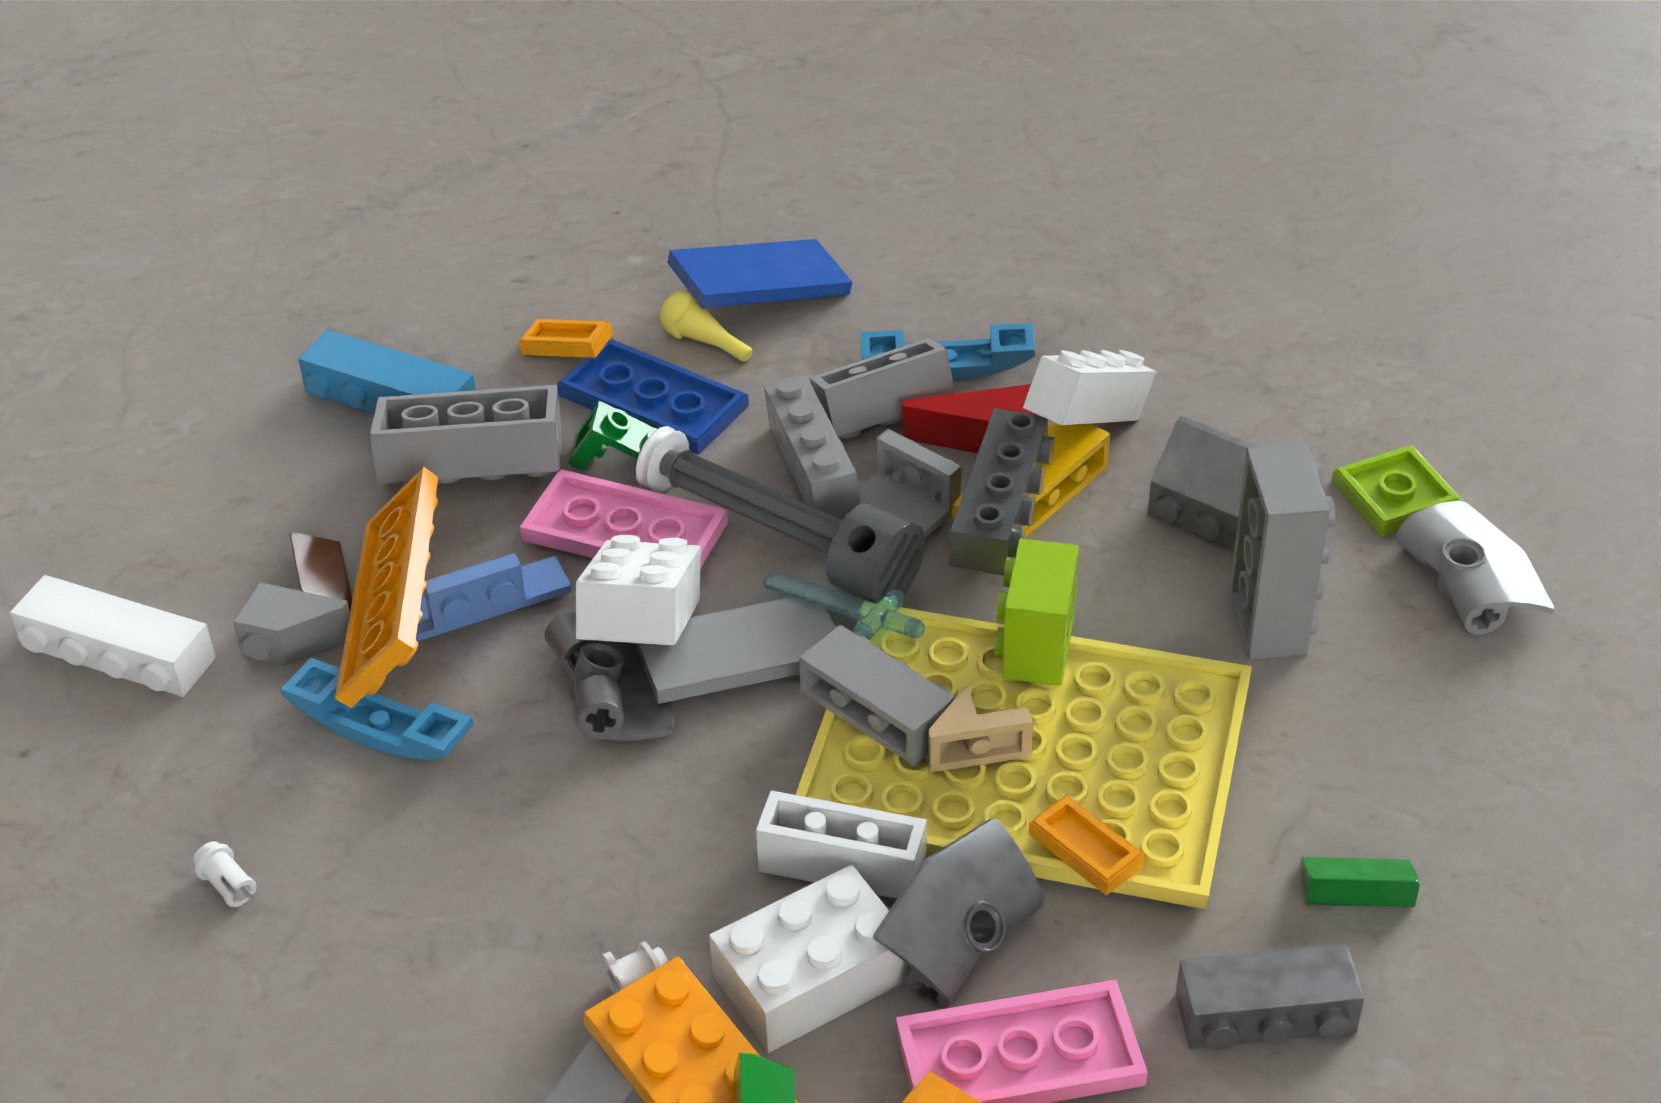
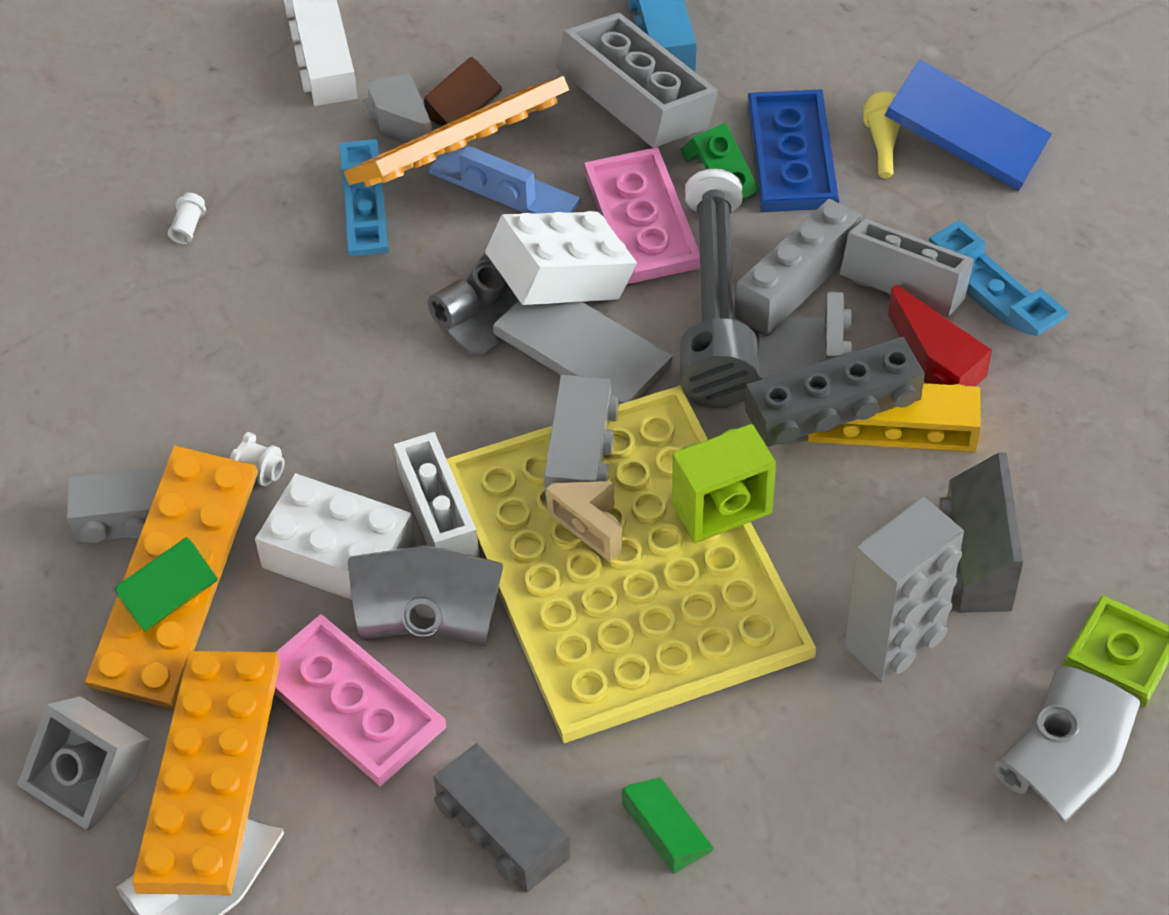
camera: 55 degrees right, 10 degrees up
(566, 338) = (797, 67): light orange tile -> none
(870, 615) = (664, 379): clear light blue sword -> none
(1086, 844) = (547, 636): light orange tile -> none
(1090, 387) = (998, 384): white brick -> none

